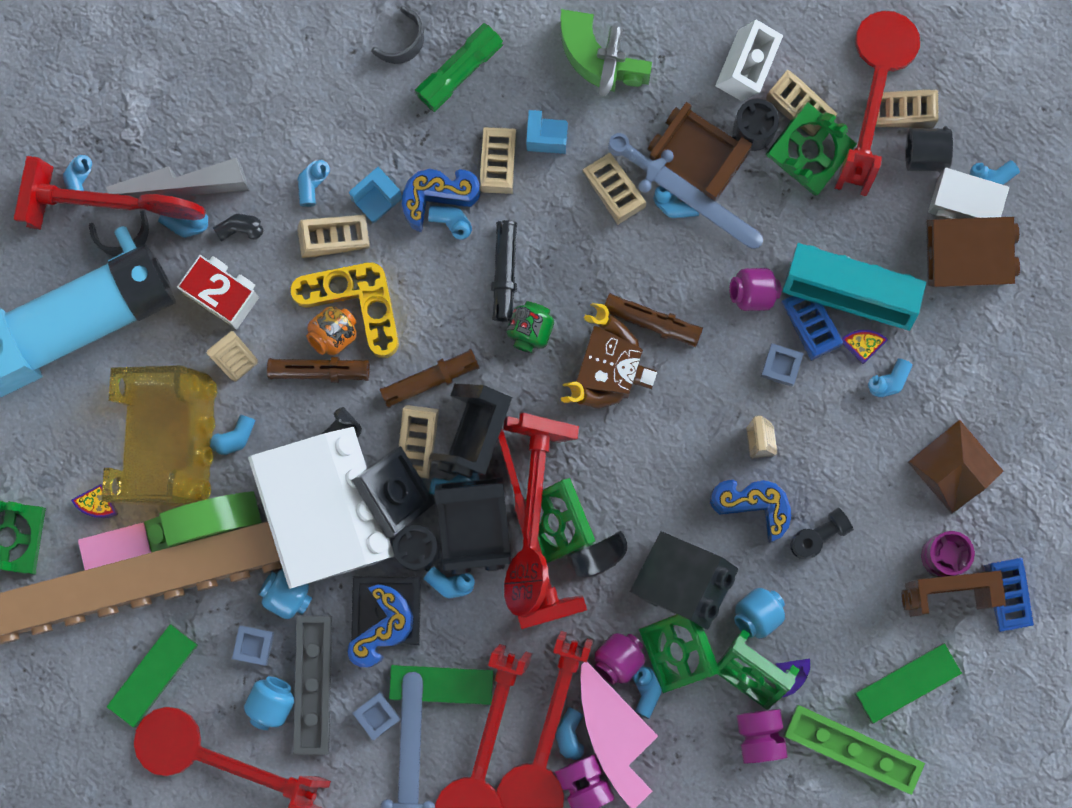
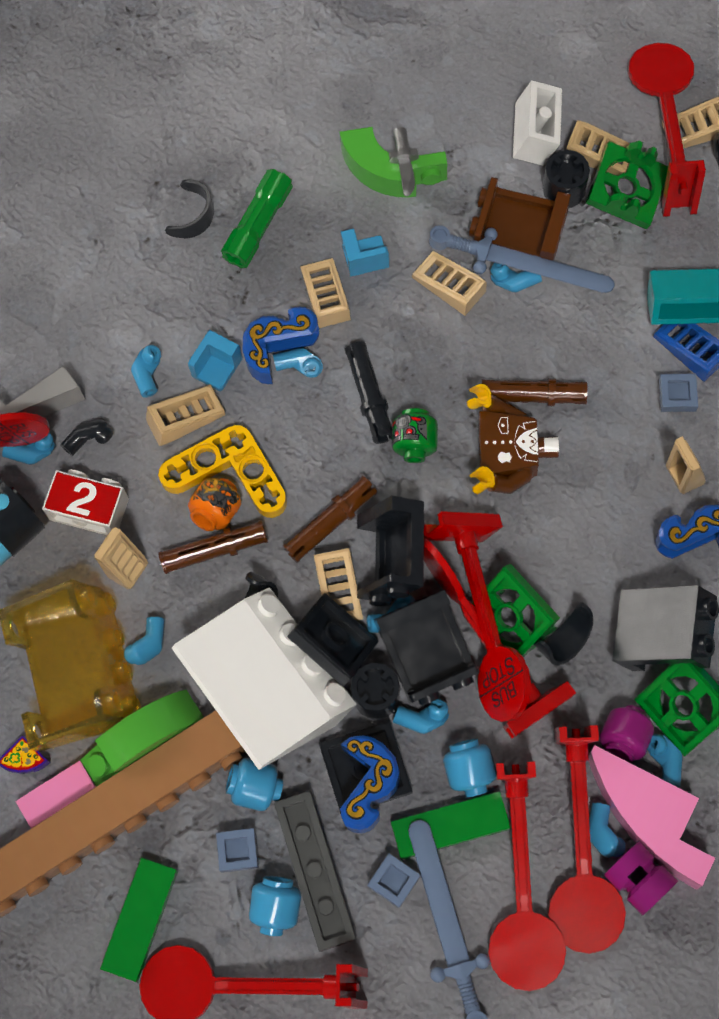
camera: 15 degrees left, 10 degrees down
(474, 641) = (469, 767): none -> dark azure head
(755, 289) = (624, 329): magenta head -> none

